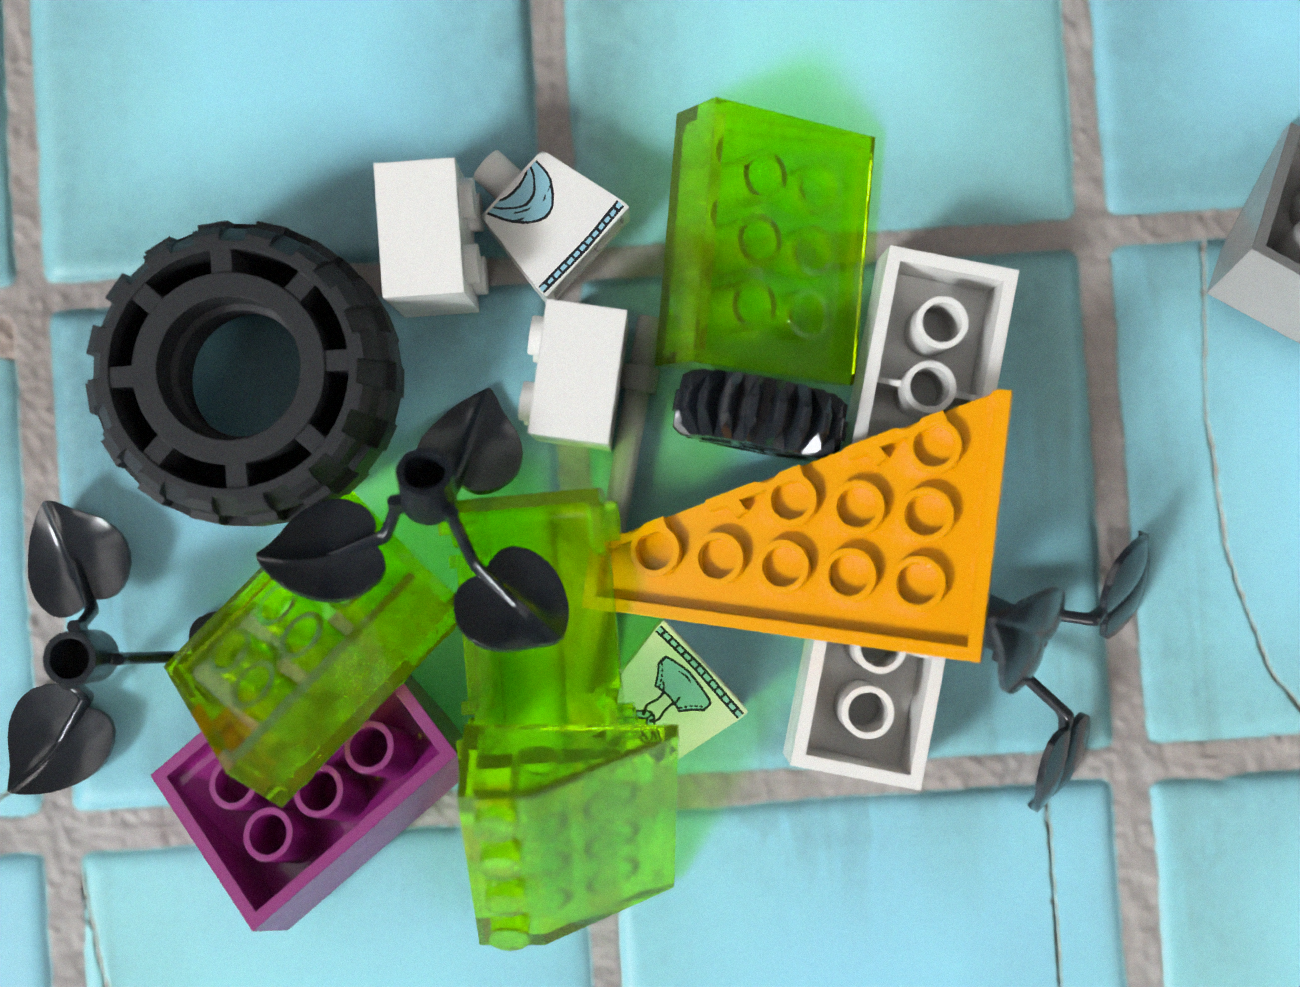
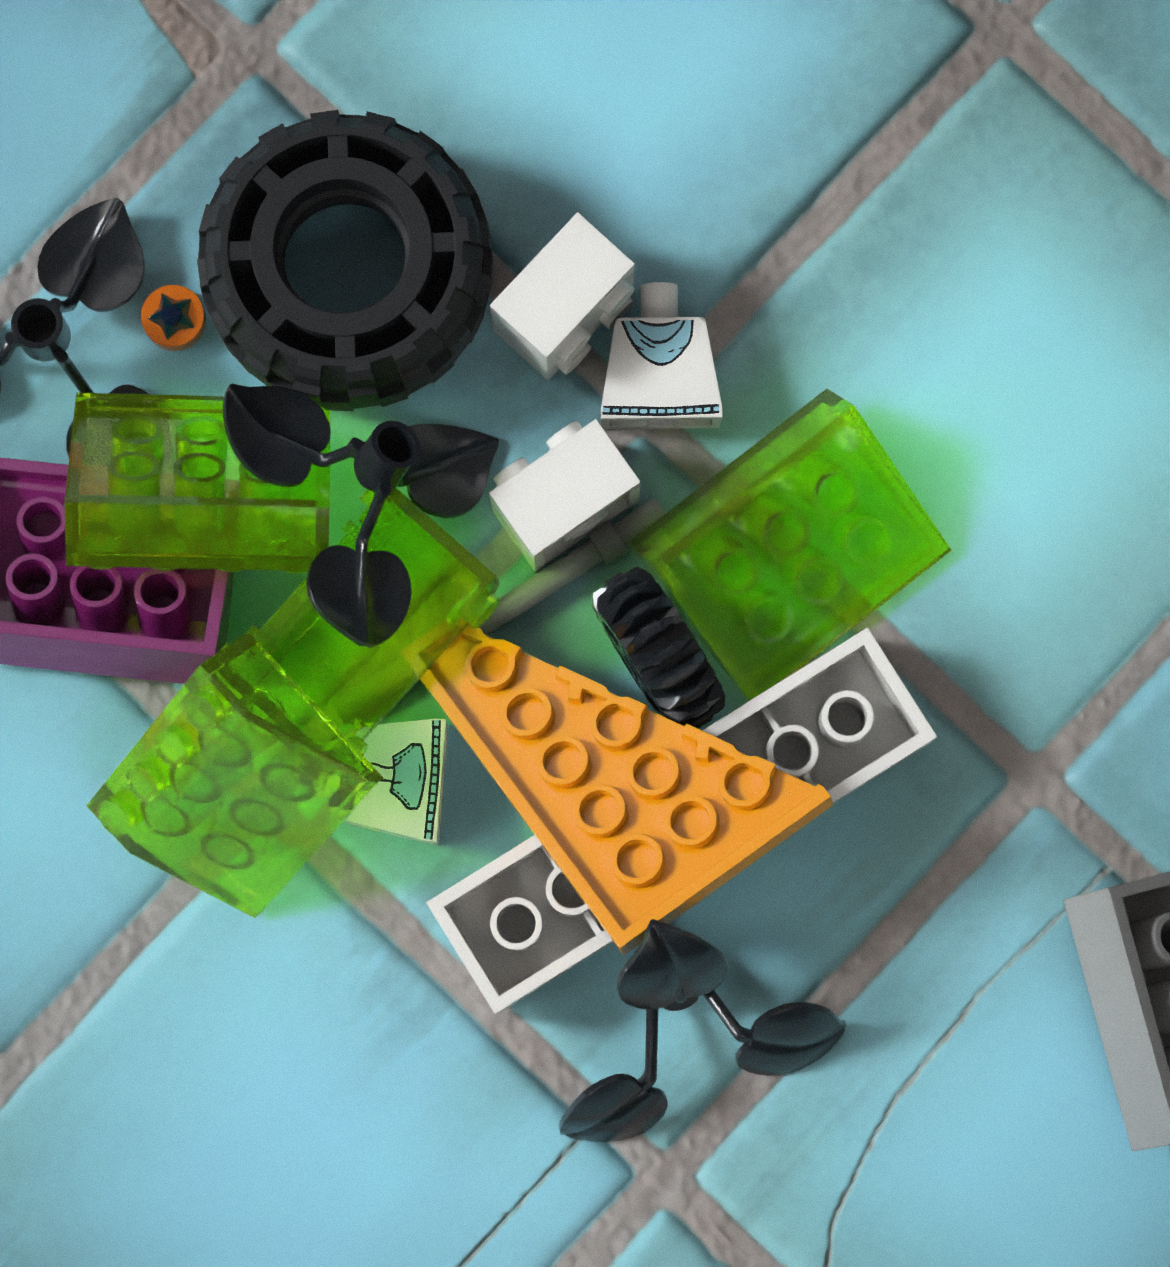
camera: 55 degrees right, 5 degrees down
(175, 542) = (173, 317): none -> orange tile

